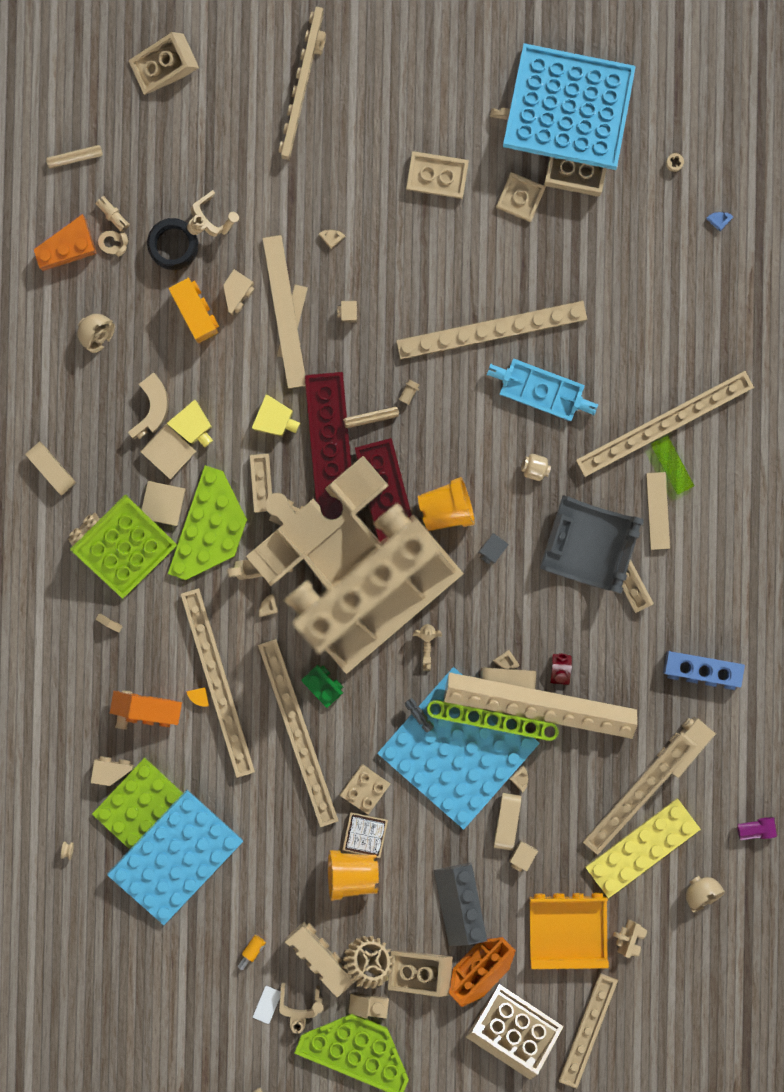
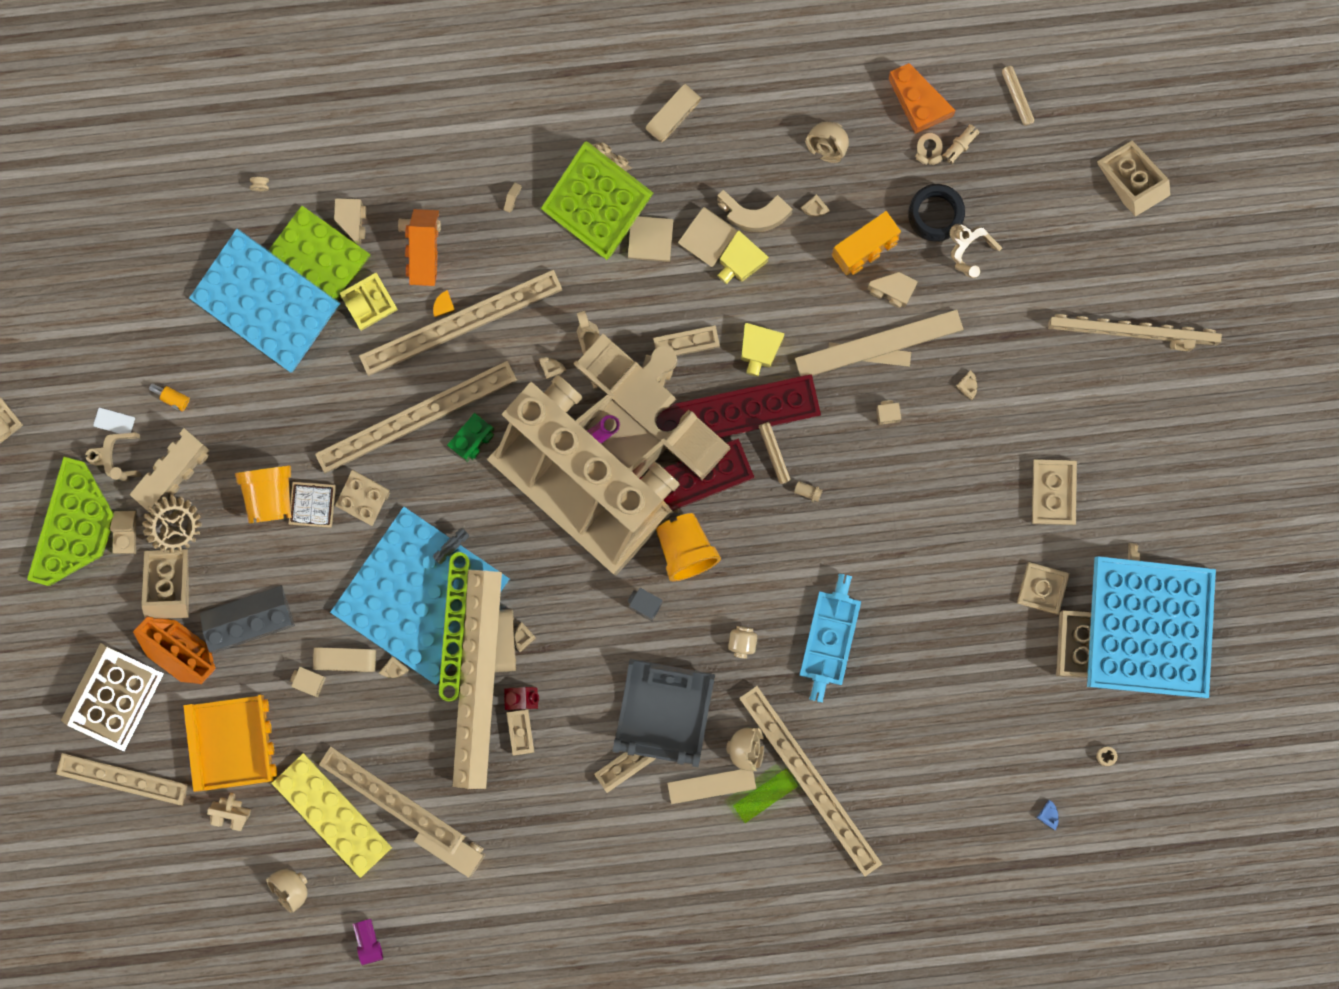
camera: 85 degrees right, 5 degrees down
(153, 352) = (815, 207): none -> tan tile
(187, 763) = (368, 301): none -> light yellow plate
(211, 527) = (630, 294): lime plate -> none
(338, 569) = (599, 431): none -> magenta piece
(427, 633) = (542, 544): tan piece -> none
(491, 330) = (889, 575): tan plate -> none
(591, 673) = (520, 732): none -> tan plate
(630, 476) = (746, 749): none -> tan cylinder
(734, 670) = (543, 893): medium blue brick -> none

